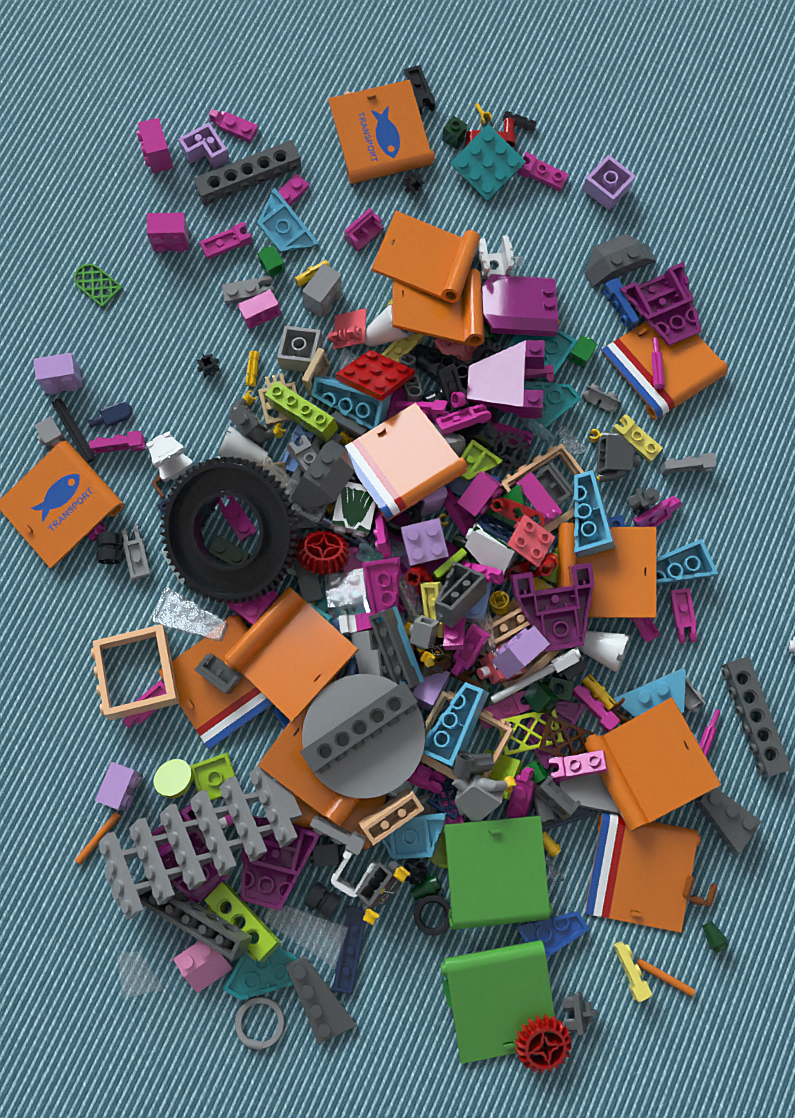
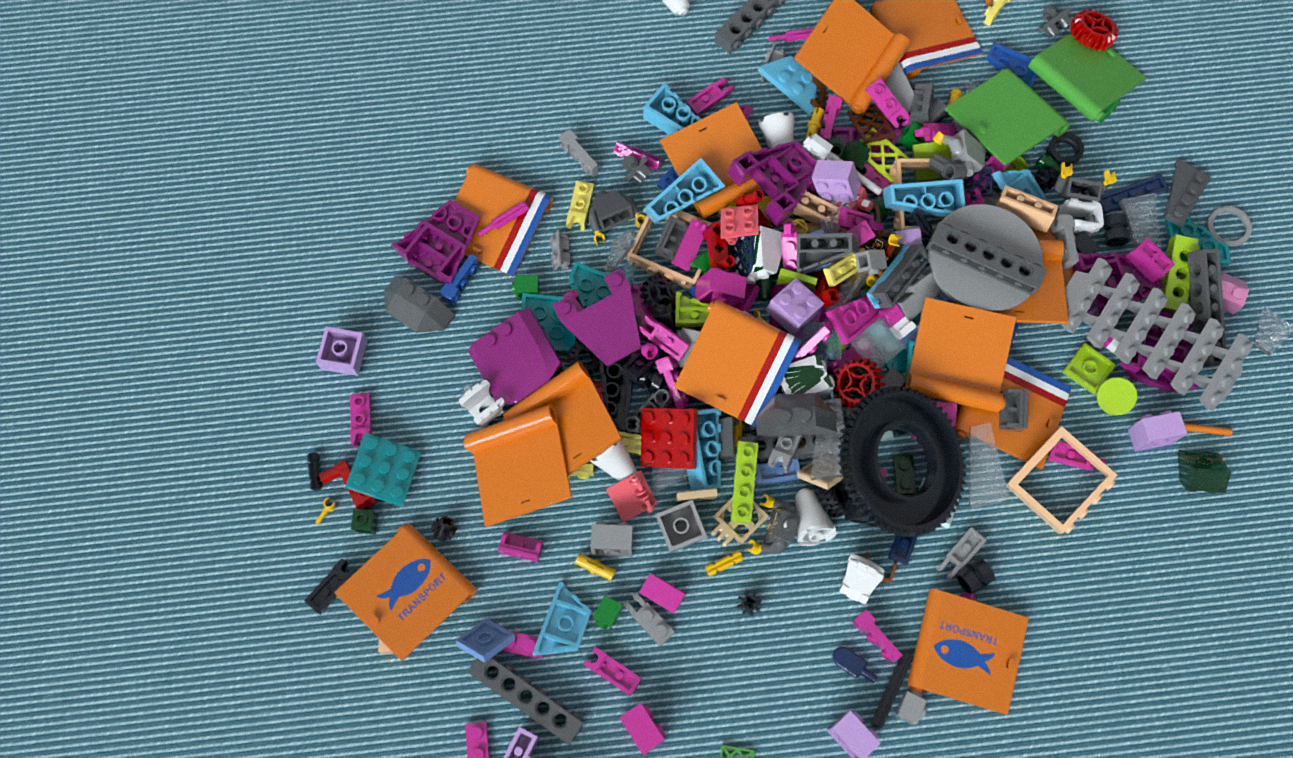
camera: 115 degrees left, 5 degrees down
(62, 806) = (1203, 471): none -> clear green slope
(269, 899) = (1150, 260): none -> dark pink hinge
(306, 162) = (485, 640): none -> medium blue plate
(434, 706) = (922, 222): none -> black axle

